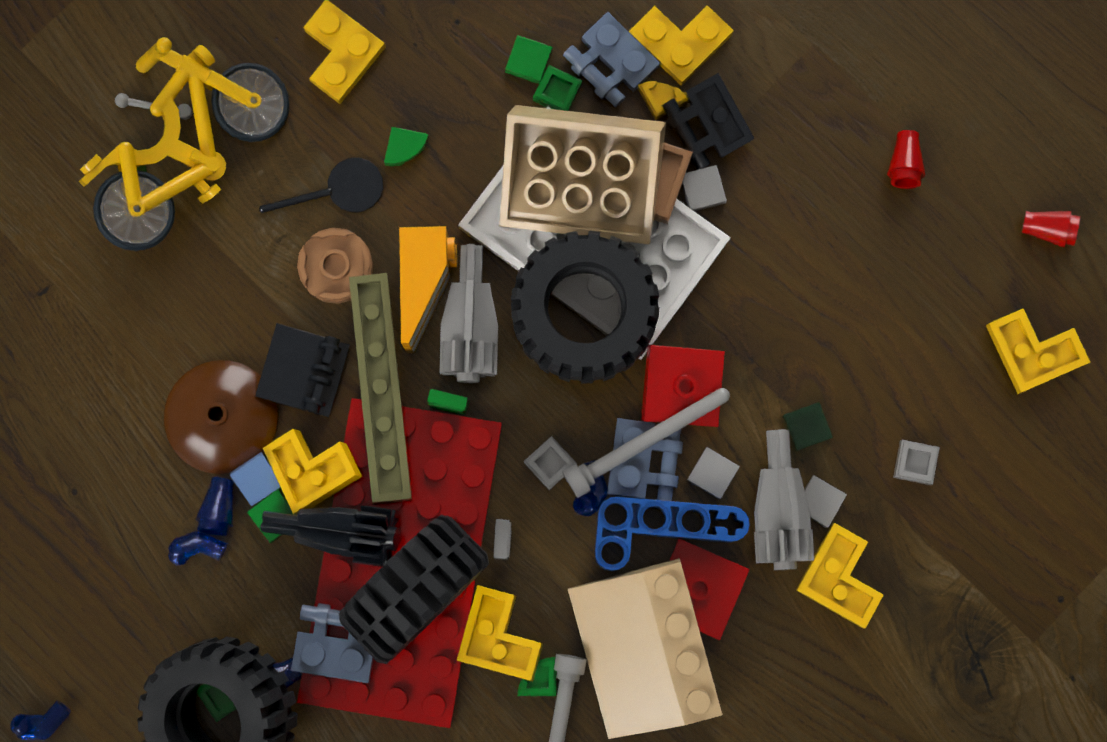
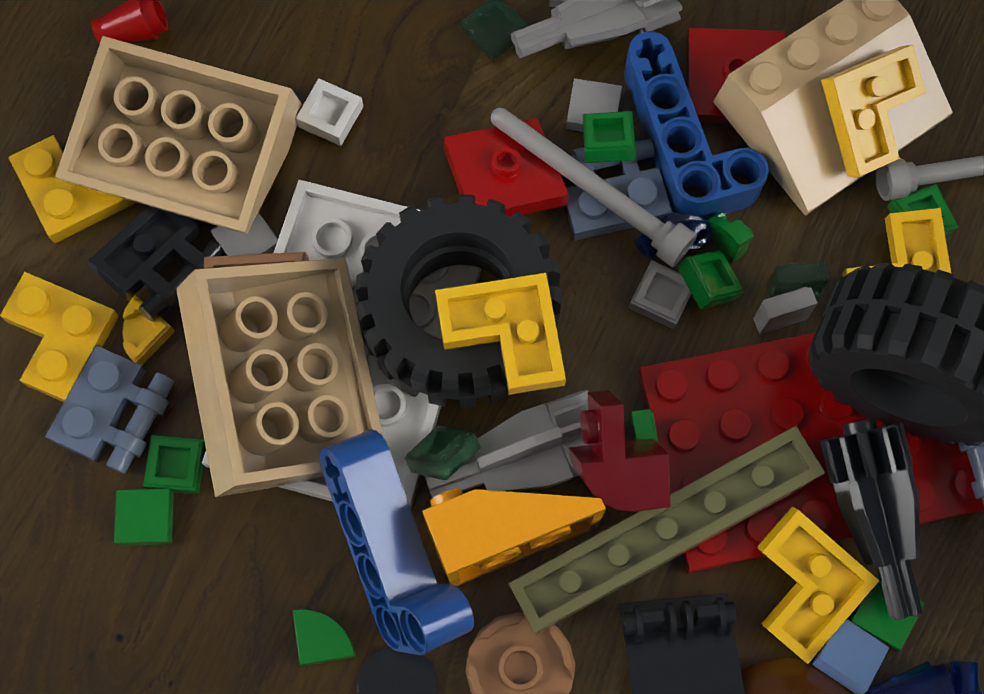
camera: 110 degrees left, 10 degrees down
(425, 365) = (618, 471): none -> dark red brick
(437, 203) = (388, 550): none -> blue beam
(488, 261) = (442, 452): none -> clear green tile
(520, 558) = (797, 276): none -> clear green tile
(541, 330) = (515, 314): none -> yellow plate
(546, 498) = (710, 279): none -> green tile
(576, 526) = (732, 237): none -> green tile
(629, 654) = (860, 103): none -> yellow plate
(678, 468) = (608, 137): none -> green tile
(778, 279) = (329, 112): none -> white plate
(780, 76) = (59, 204): none -> yellow plate
(792, 164) = (179, 135): none -> tan slope

